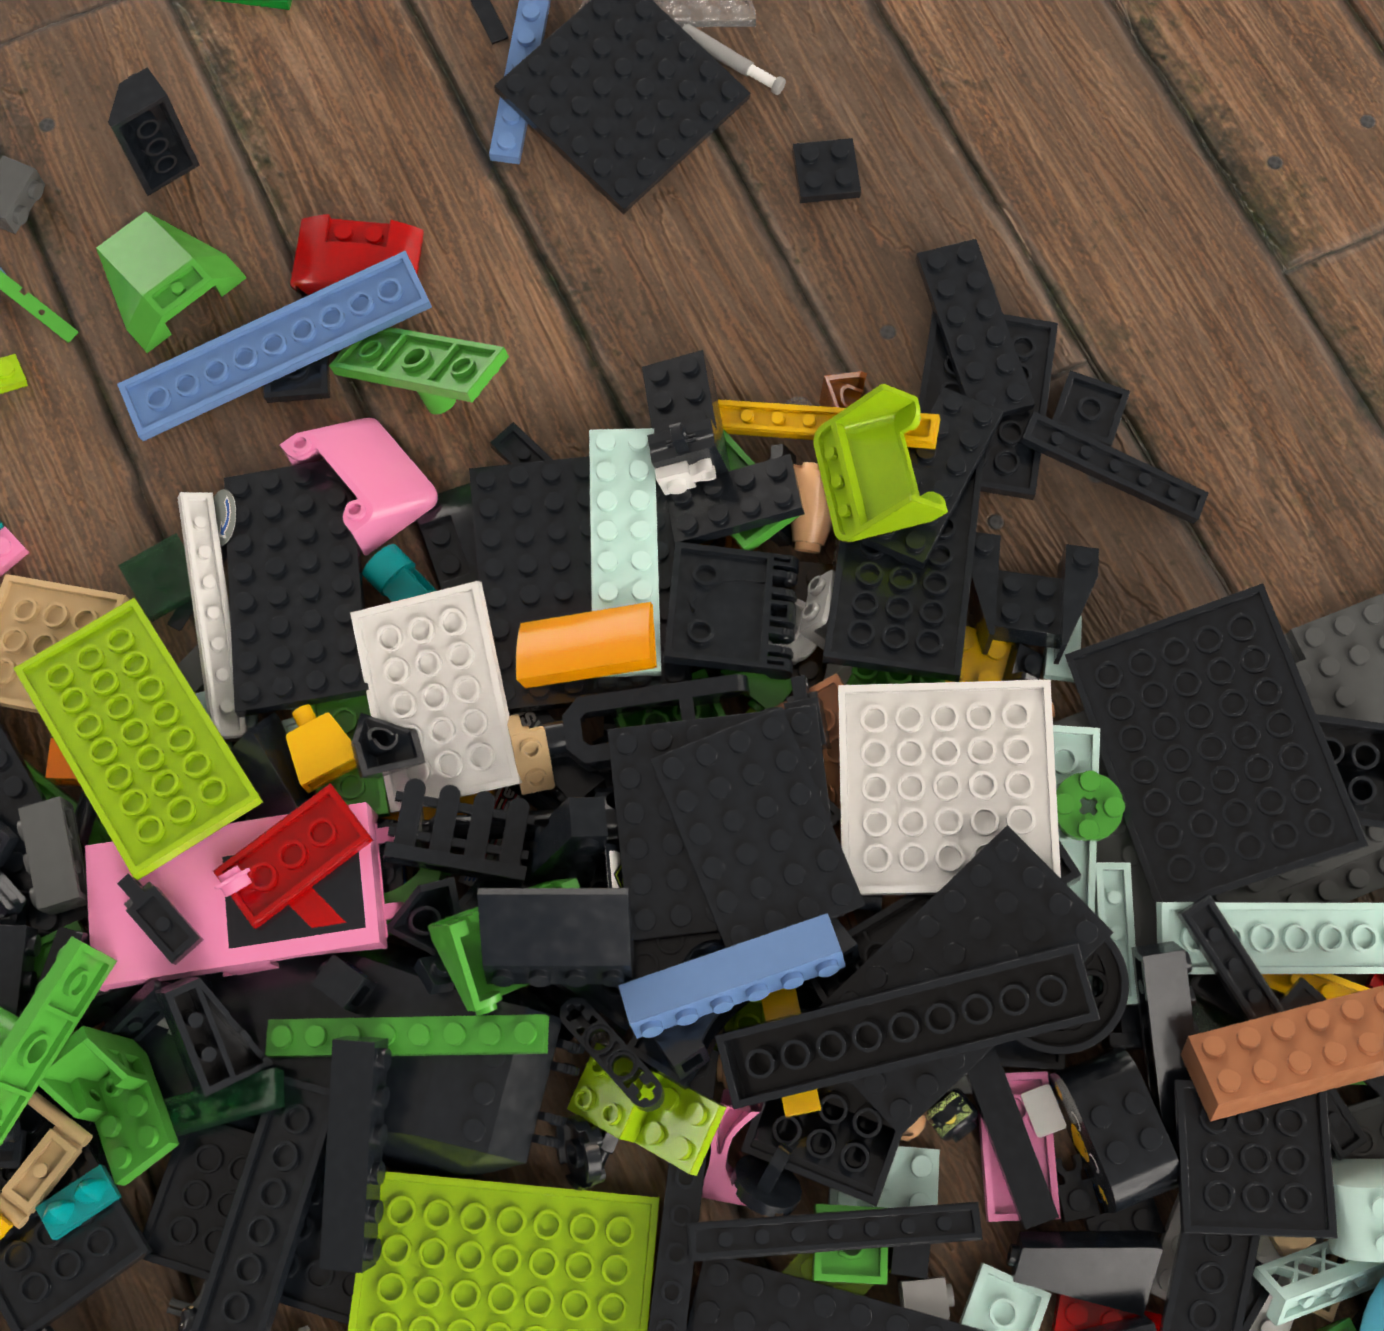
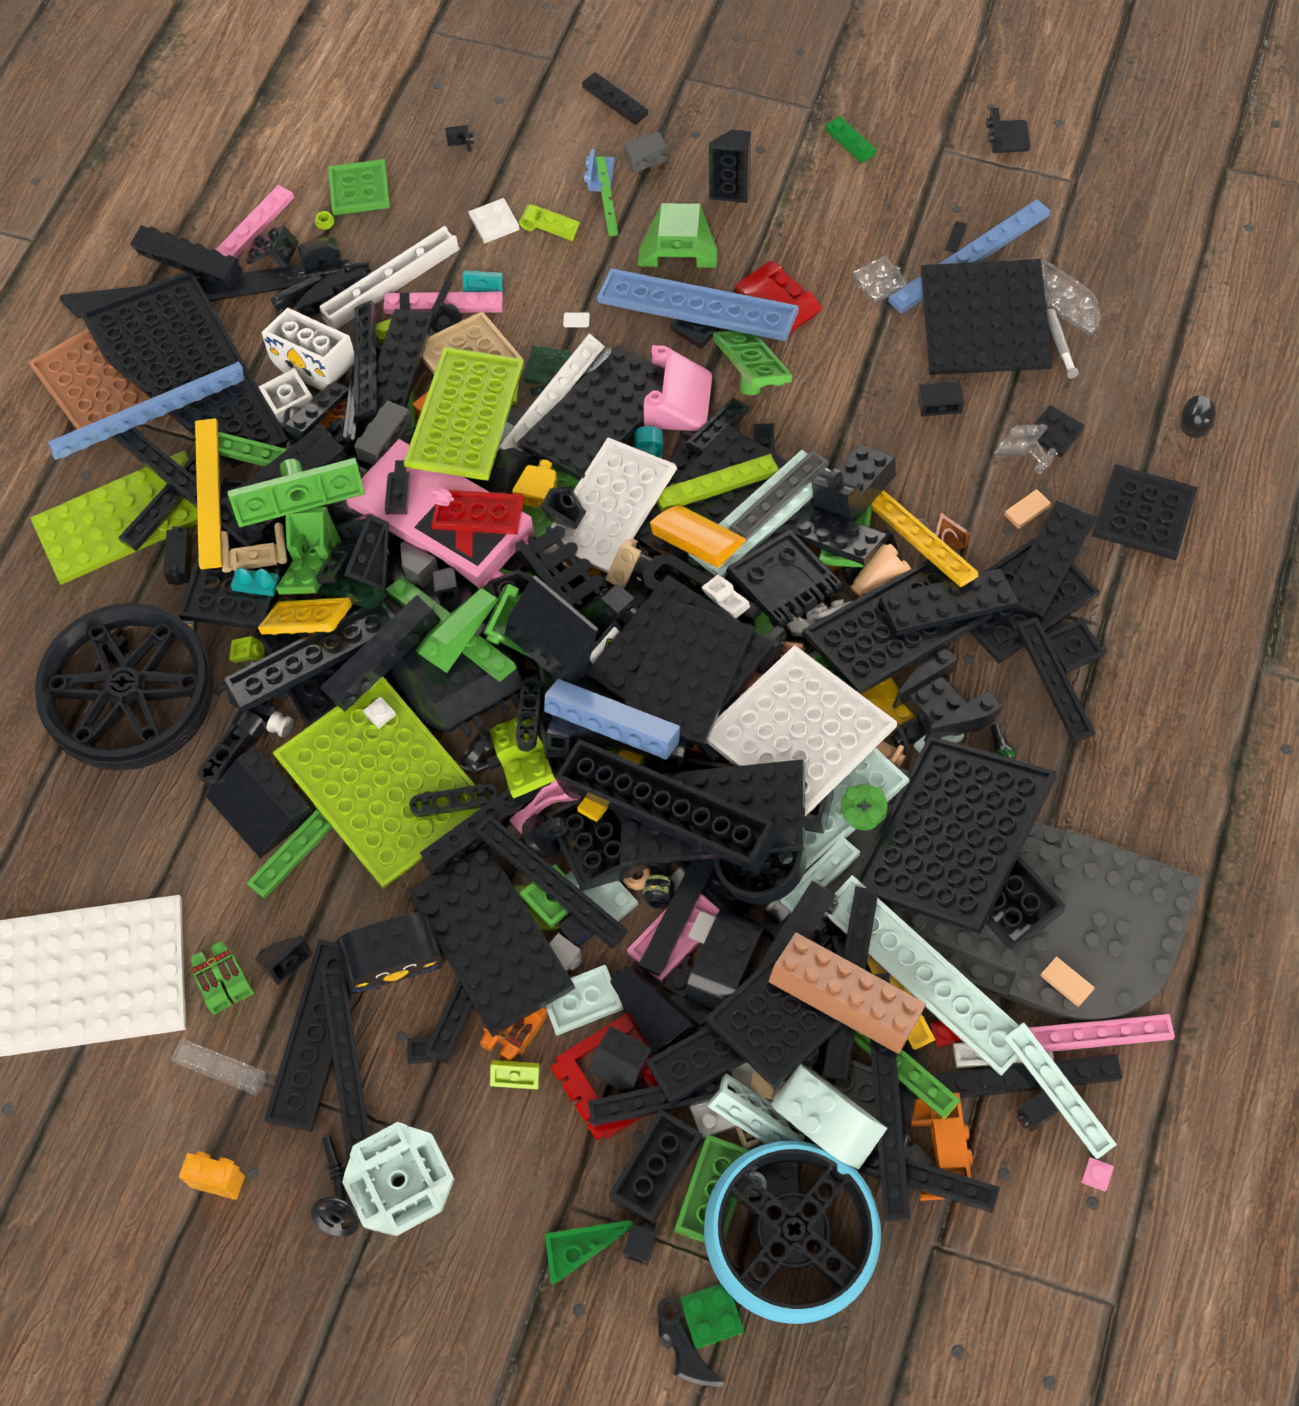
camera: 50 degrees right, 10 degrees down
(136, 485) = (576, 320): none -> white sticker
(152, 1293) = (246, 649): none -> lime bracket
(164, 1078) = (335, 563): none -> black plate
(197, 1189) = (305, 616): none -> yellow plate
(274, 988) = (417, 565): none -> dark grey slope
(419, 1222) = (379, 712): none -> white plate
(426, 1048) = (451, 635): none -> bright green wedge
(452, 482) = (728, 415): none -> black tile
(457, 140) = (879, 279): none -> clear plate
(535, 555) = (717, 482): none -> lime plate
(612, 1237) = (454, 804): none -> black beam
(627, 513) = (779, 495): none -> dark grey tile
(669, 233) = (940, 398): none -> black brick
(682, 476) = (821, 502): white plate -> none
(699, 696) = (725, 597): none -> white slope
(813, 213) = (1024, 440): none -> clear plate
(870, 469) = (918, 566): lime windscreen -> none
(886, 289) = (1027, 509): none -> light nougat tile
(960, 32) = (1198, 416): none -> black piece
(1010, 189) = (1145, 512): none -> black plate
(1137, 597) = (1002, 747): none -> black piece

